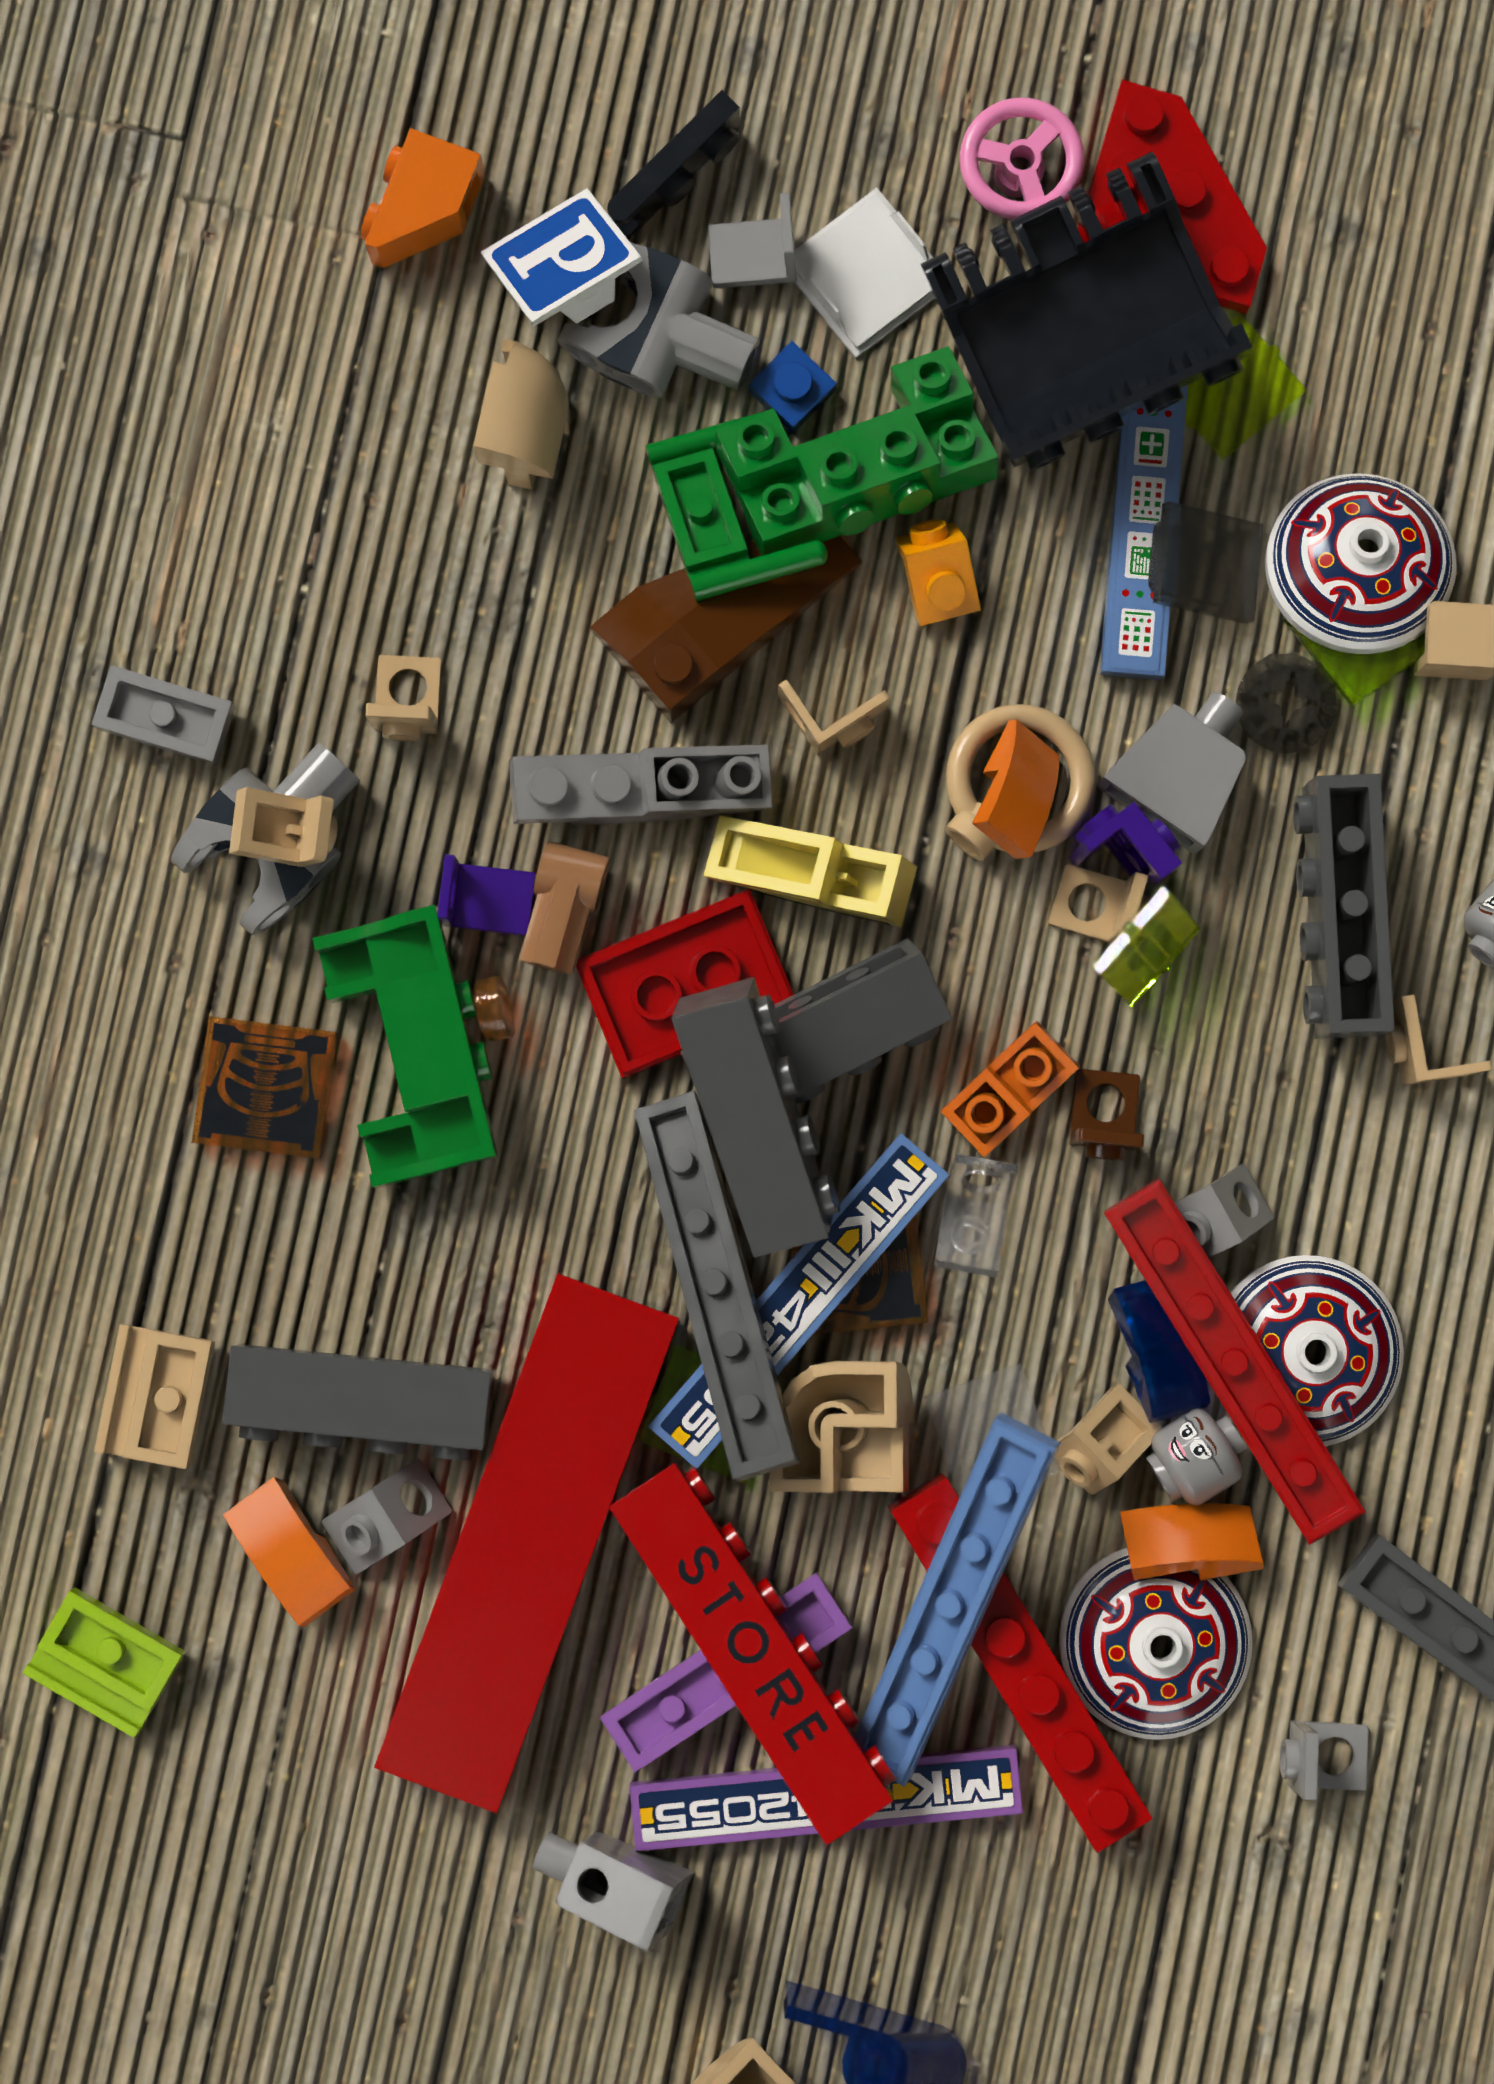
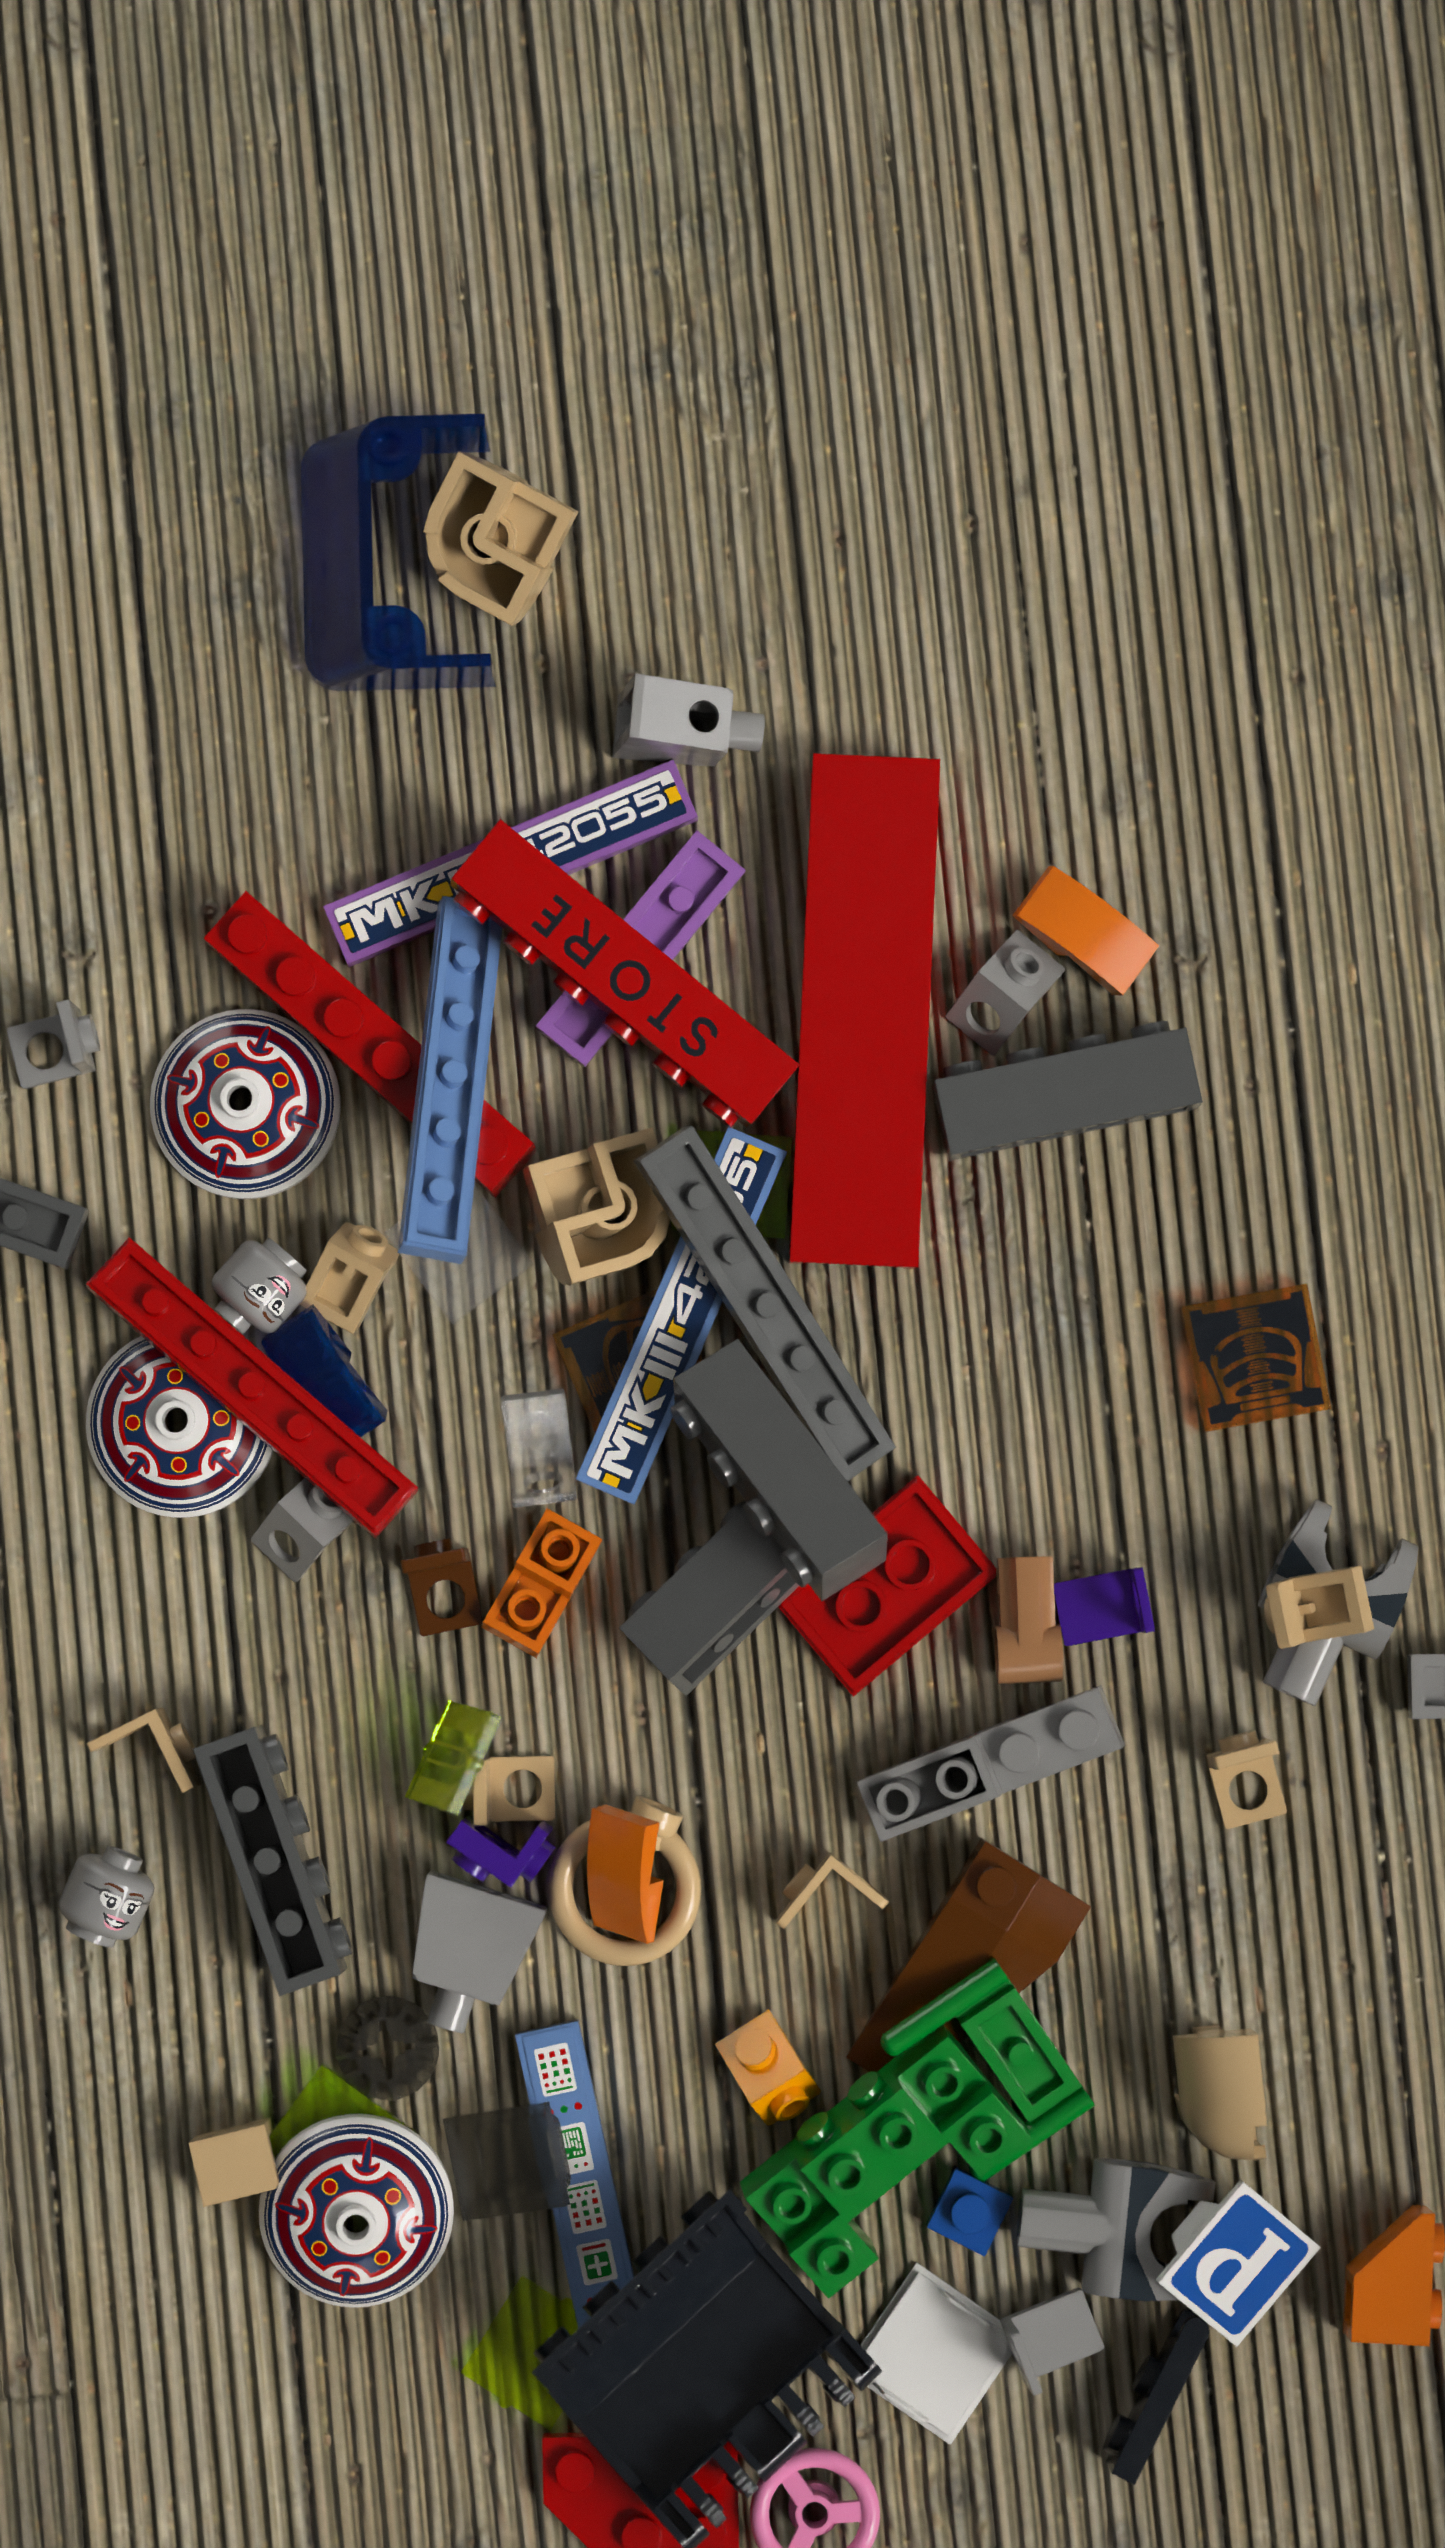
camera: 170 degrees right, 0 degrees up
(104, 1662) = (1223, 776): lime plate -> none
(154, 1396) = (1260, 1035): tan plate -> none
(428, 1041) = (1112, 1448): green bracket -> none
(494, 1008) = (1061, 1501): clear orange tile -> none
(811, 870) = (799, 1732): light yellow slope -> none
(1191, 1537) = (247, 1208): orange slope -> none

